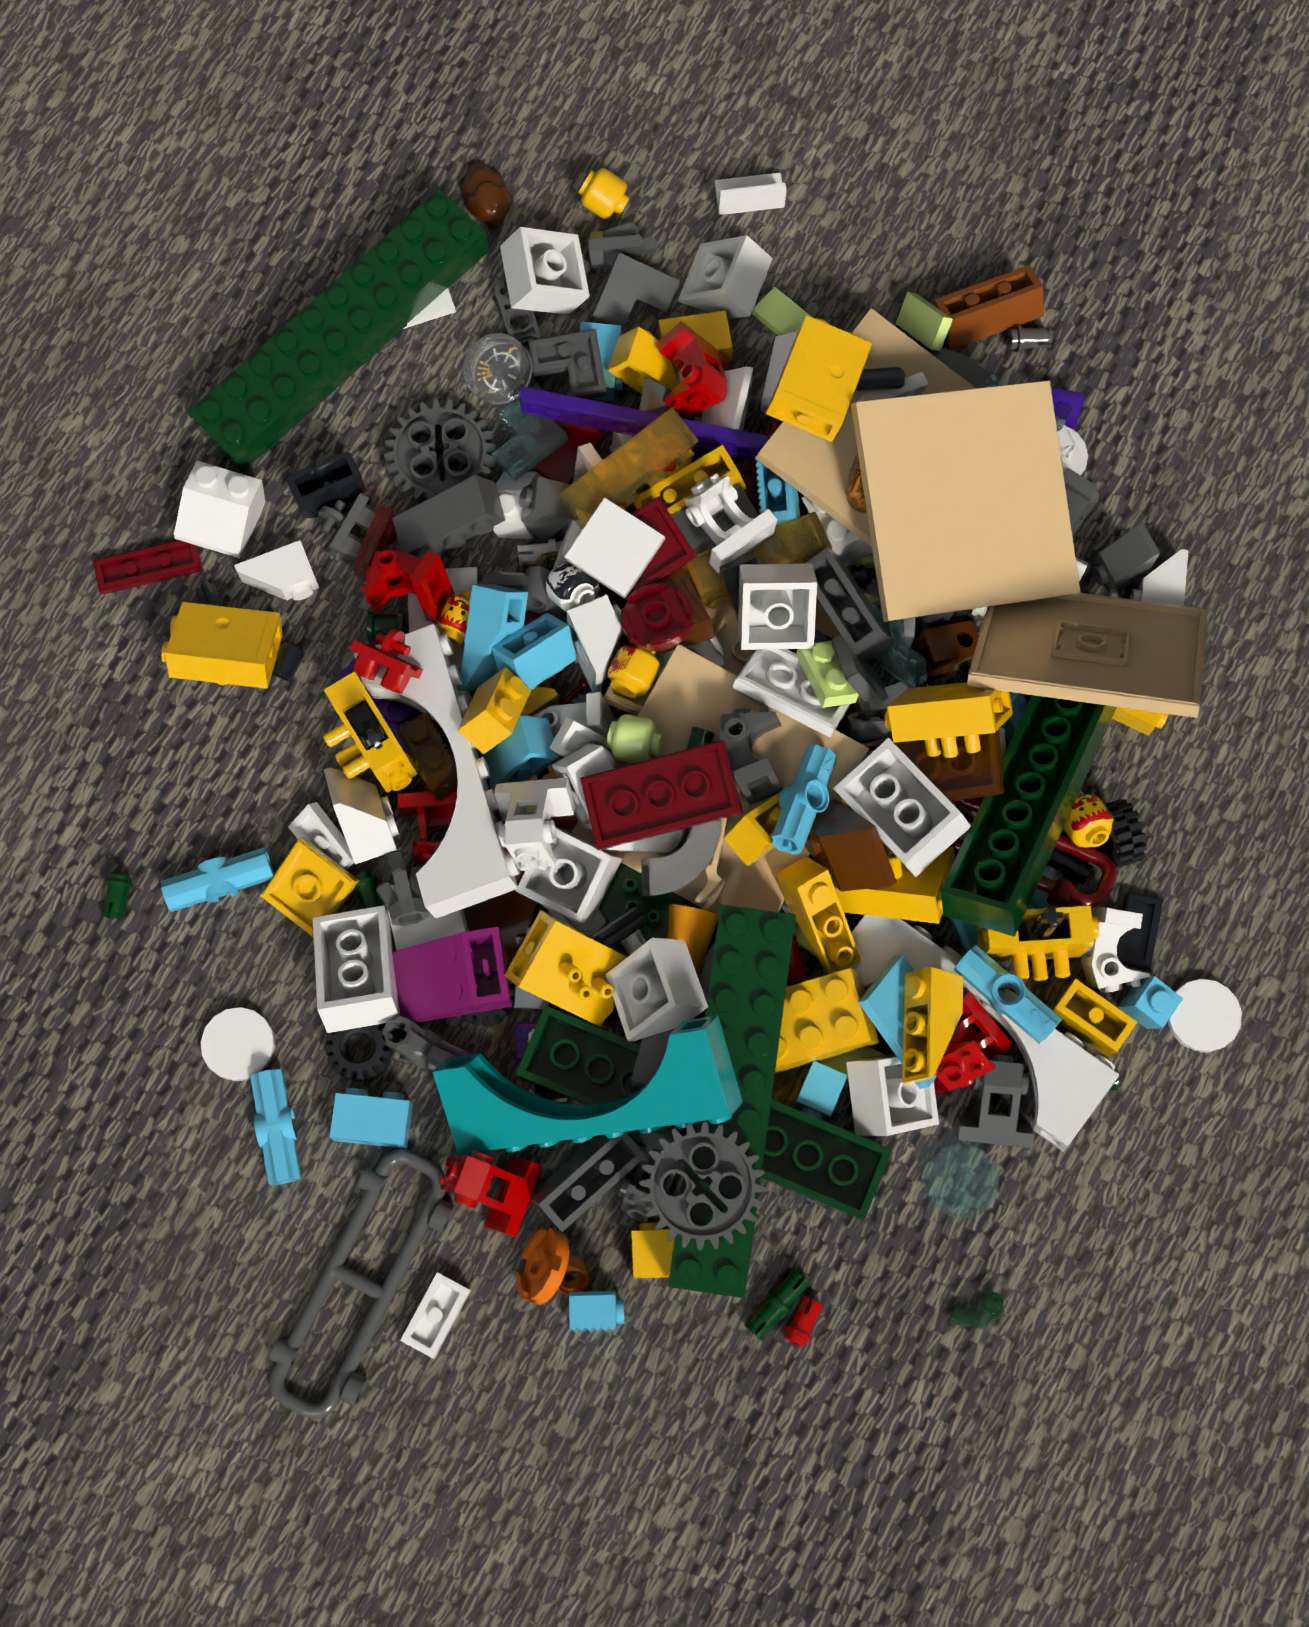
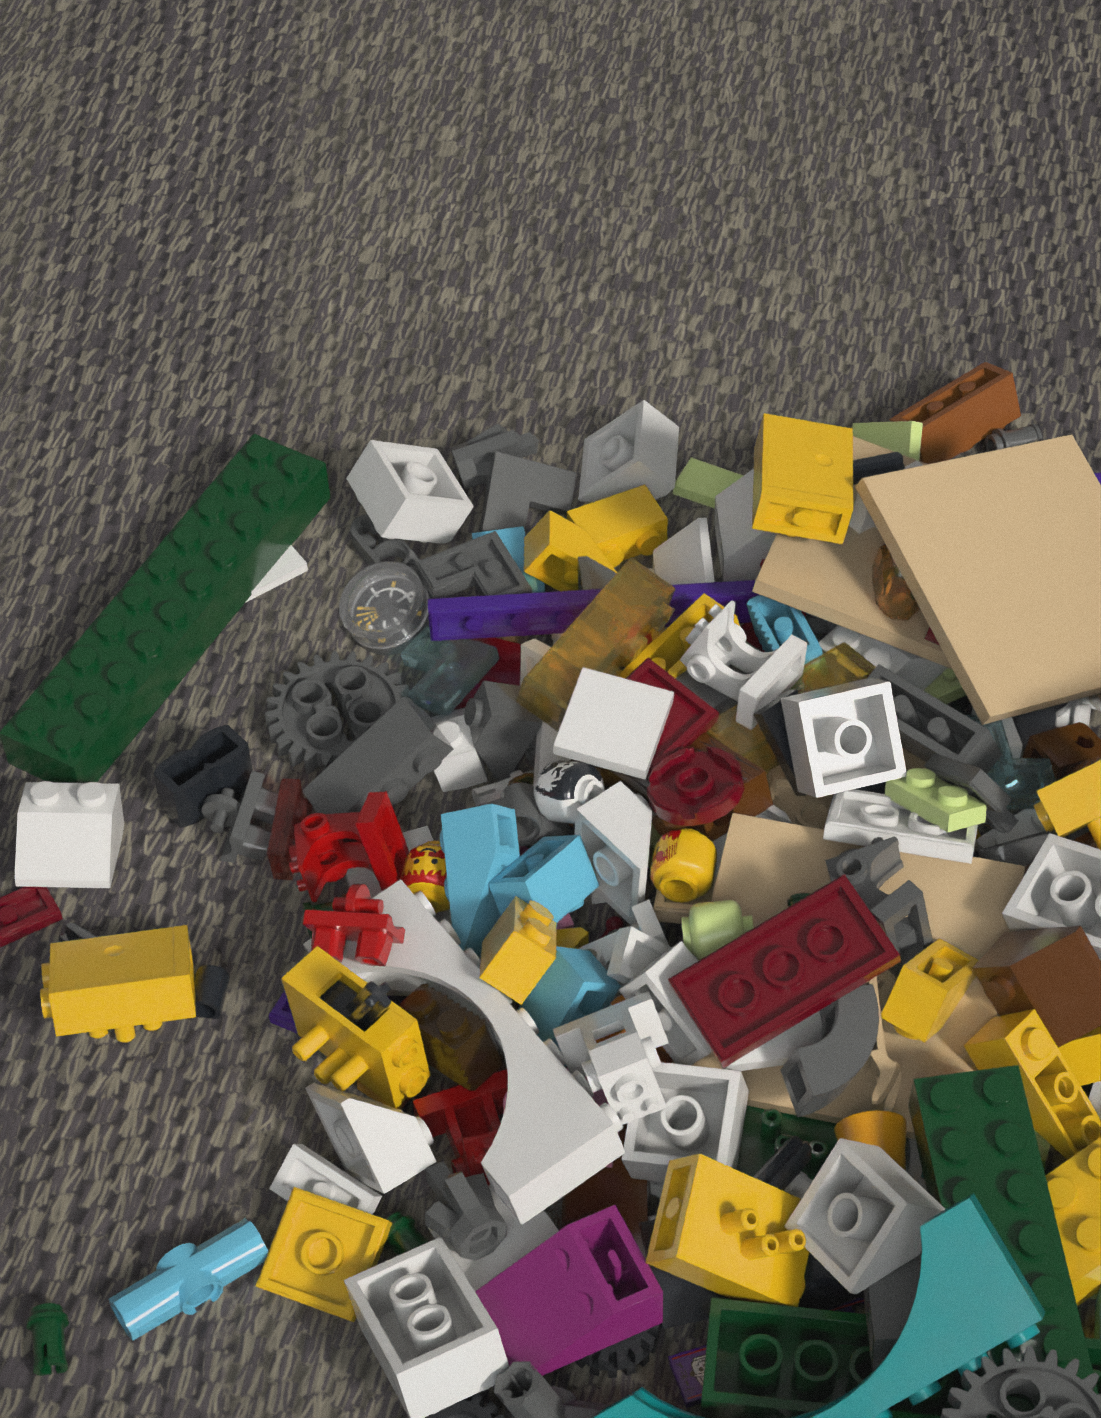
camera: 15 degrees left, 25 degrees down
(280, 572) = (169, 890): white slope -> none
(486, 194) = (309, 438): reddish brown arm -> none
(604, 193) = (451, 411): yellow head -> none
(701, 371) = (643, 538): red tile -> none
(750, 193) = (627, 377): white panel -> none
(803, 799) = (970, 933): medium azure piece -> none

